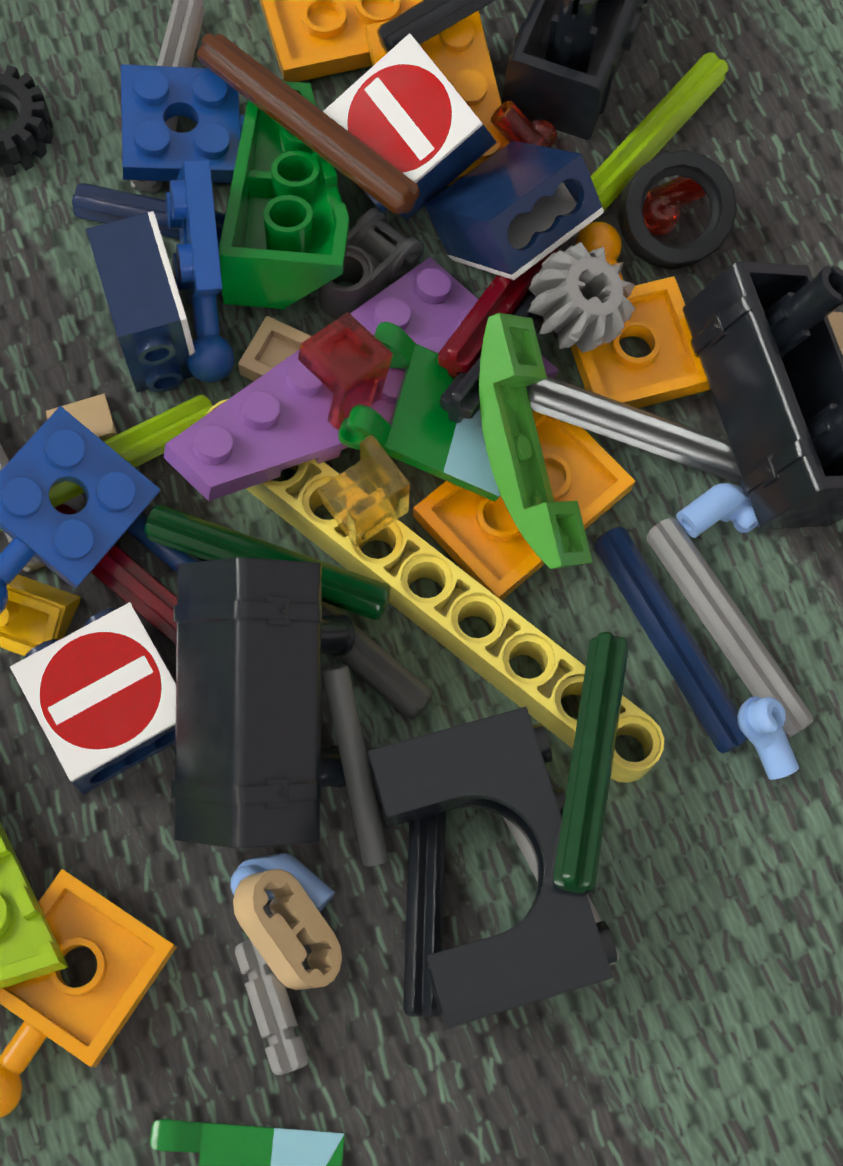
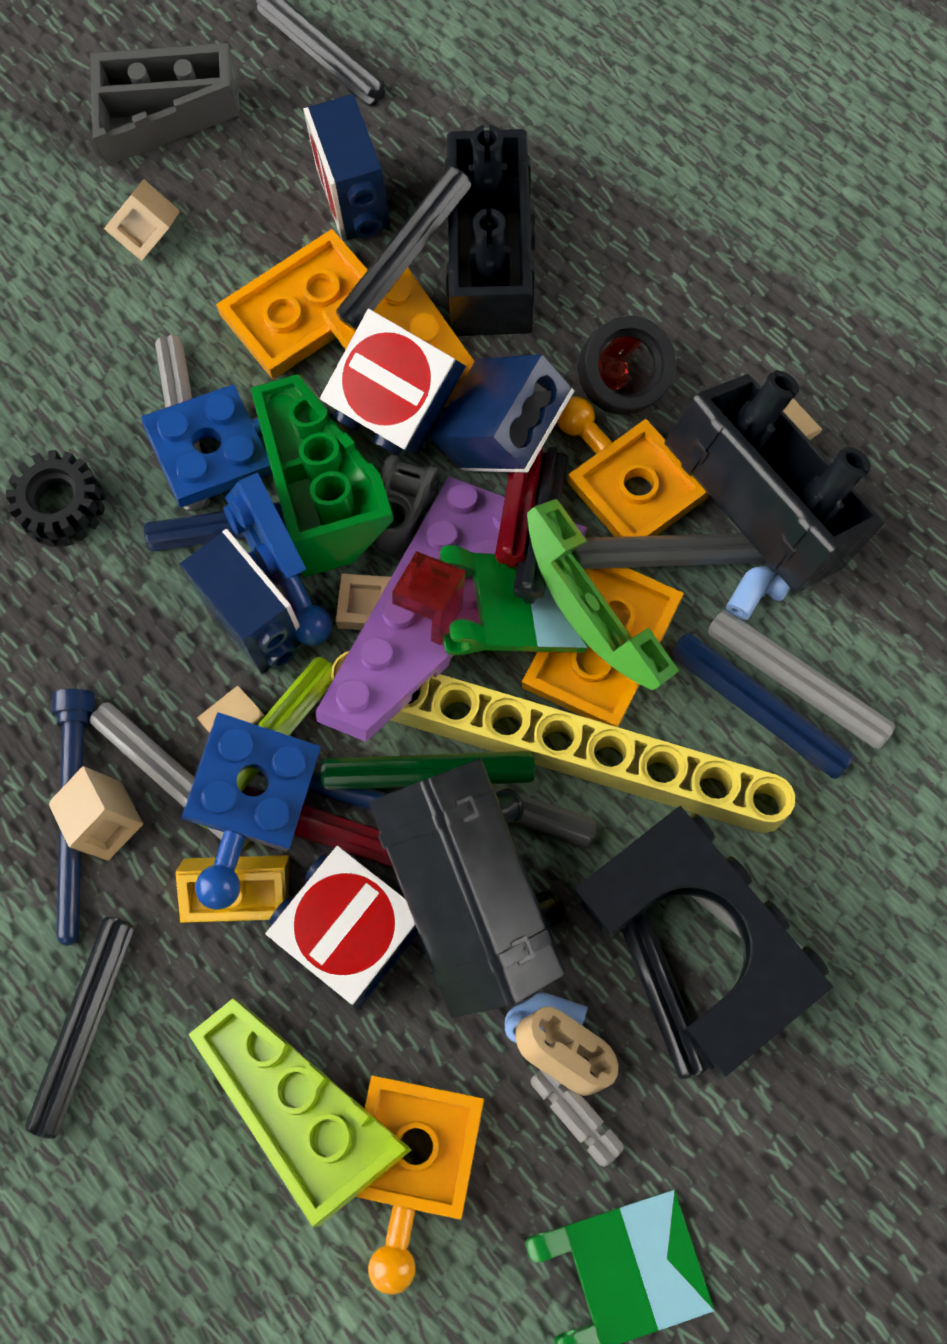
camera: 10 degrees left, 0 degrees up
(309, 124) = (314, 409): reddish brown axle -> none
(355, 765) = (564, 902): dark grey bar -> none
(367, 494) = (486, 686): clear yellow panel -> none
(517, 127) = (476, 347): clear red arm -> none
(581, 298) = (585, 466): light grey gear -> none
(591, 764) = (748, 829): dark green axle -> none
(658, 127) = (582, 301): lime axle -> none
(763, 725) = (861, 746): light blue arm -> none

